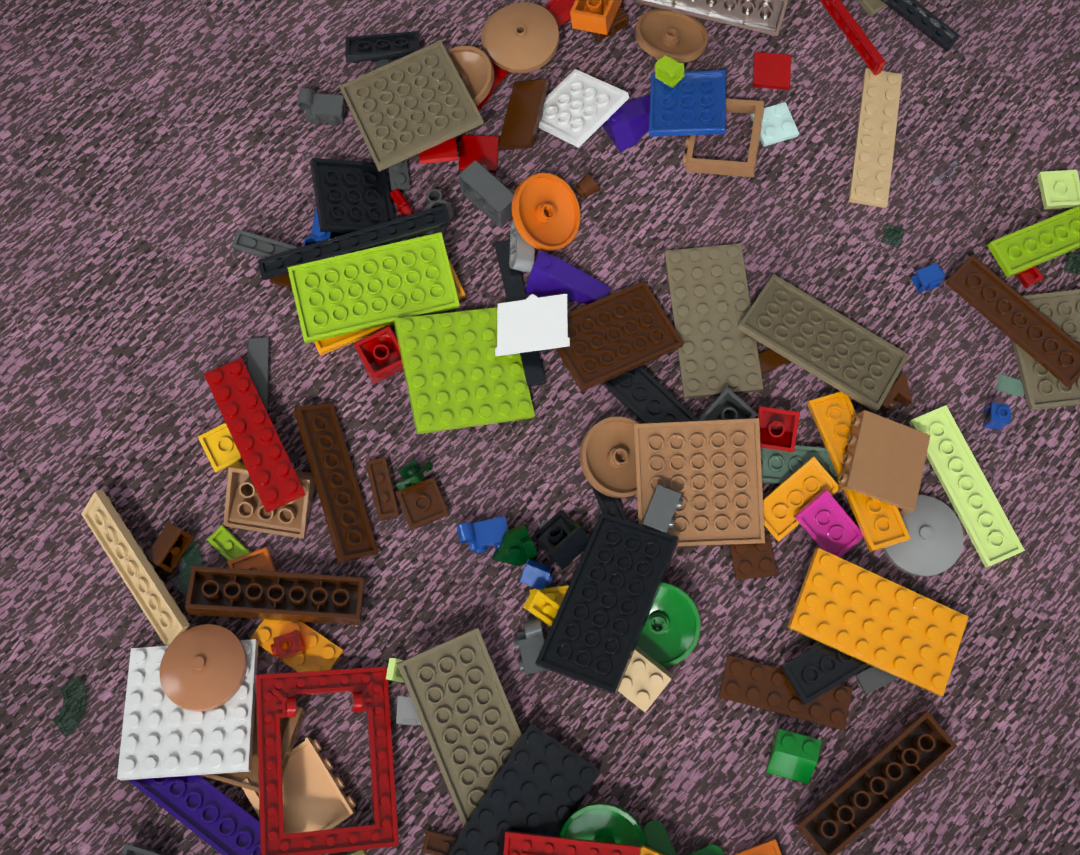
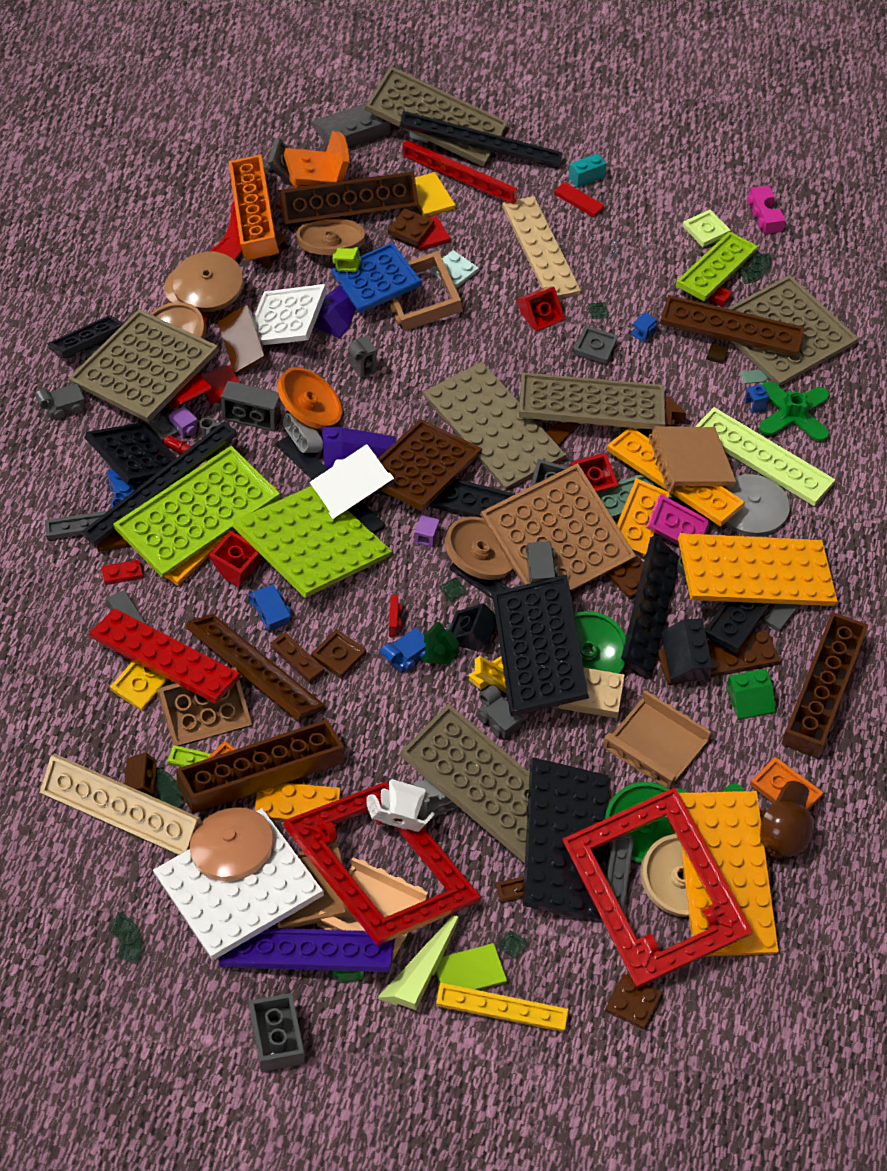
camera: 30 degrees left, 20 degrees down
(278, 316) = (122, 572): none -> red plate
(295, 648) = (294, 798): clear red brick -> none
(373, 715) = (399, 802): none -> white piece
(386, 422) = (270, 607): none -> blue hinge
(393, 671) = (394, 774): yellowish green plate -> none
(412, 473) = (315, 633): dark green plate -> none
(420, 180) = (184, 422): none -> medium lavender brick
(500, 482) = (394, 623): none -> red plate
(536, 574) = (465, 659): blue window -> none
(569, 485) = (453, 589): none -> clear green tile
(579, 409) = (426, 531): none -> medium lavender brick
(586, 186) = (329, 370): reddish brown hat -> none
(624, 187) = (363, 357): none -> dark grey hinge
(670, 757) = (657, 740): none -> medium nougat panel
(747, 607) = (650, 607): none -> black plate
(753, 678) = (687, 651): none -> black slope
(757, 58) = (411, 227): none -> reddish brown plate
(799, 28) = (432, 195): none -> yellow tile
(835, 208) = (541, 308): none -> red slope
(866, 275) = (595, 344): none -> dark grey plate
(946, 97) = (579, 199): none -> red tile
(974, 67) = (587, 170): none -> teal brick
(986, 342) = (717, 353): none -> dark brown tile
(1020, 448) = (794, 408): none -> green piece

